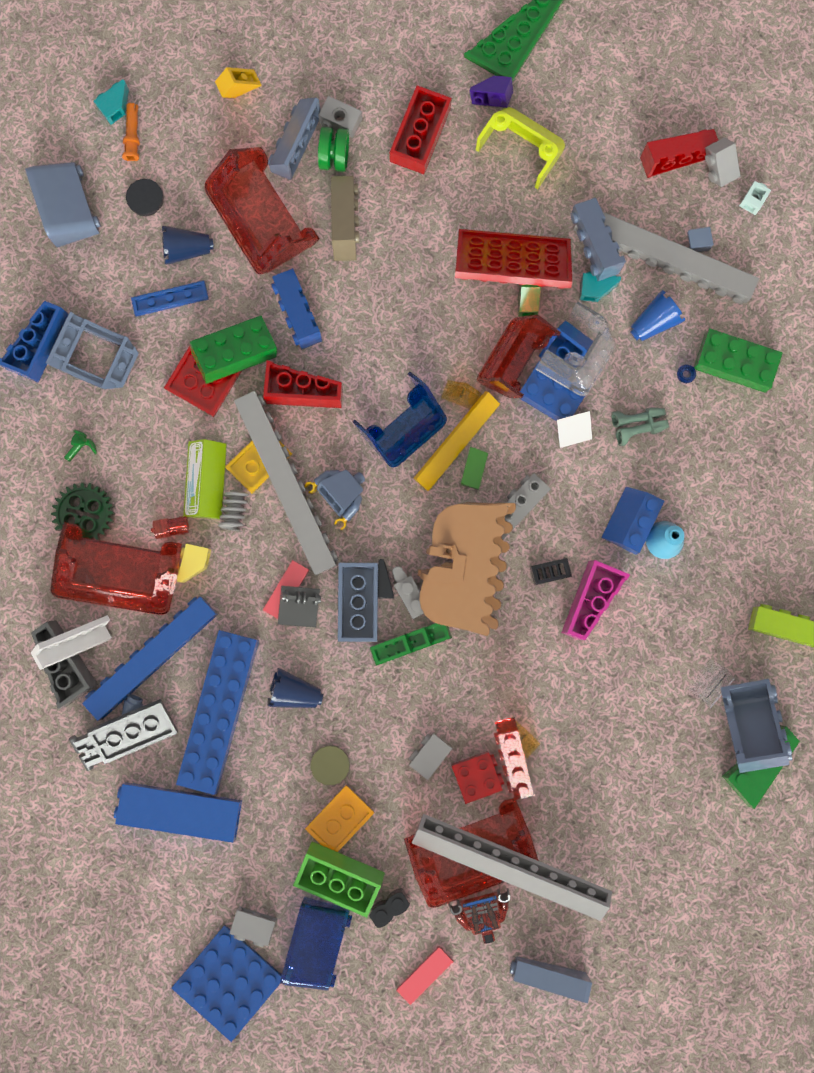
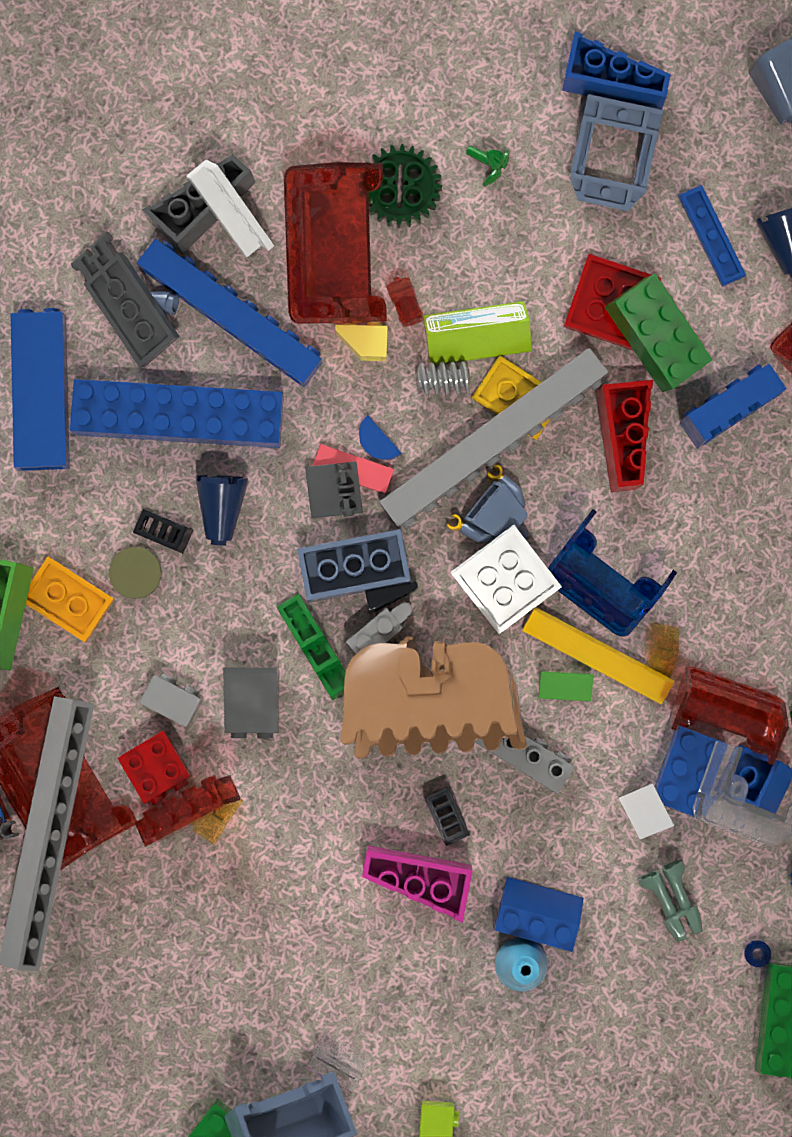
camera: 75 degrees right, 0 degrees up
(270, 569) = (376, 442): none -> blue tile
(313, 726) = (181, 541): none -> black slope
(389, 494) = (506, 579): none -> white plate
(443, 697) = (251, 701): none -> dark grey slope

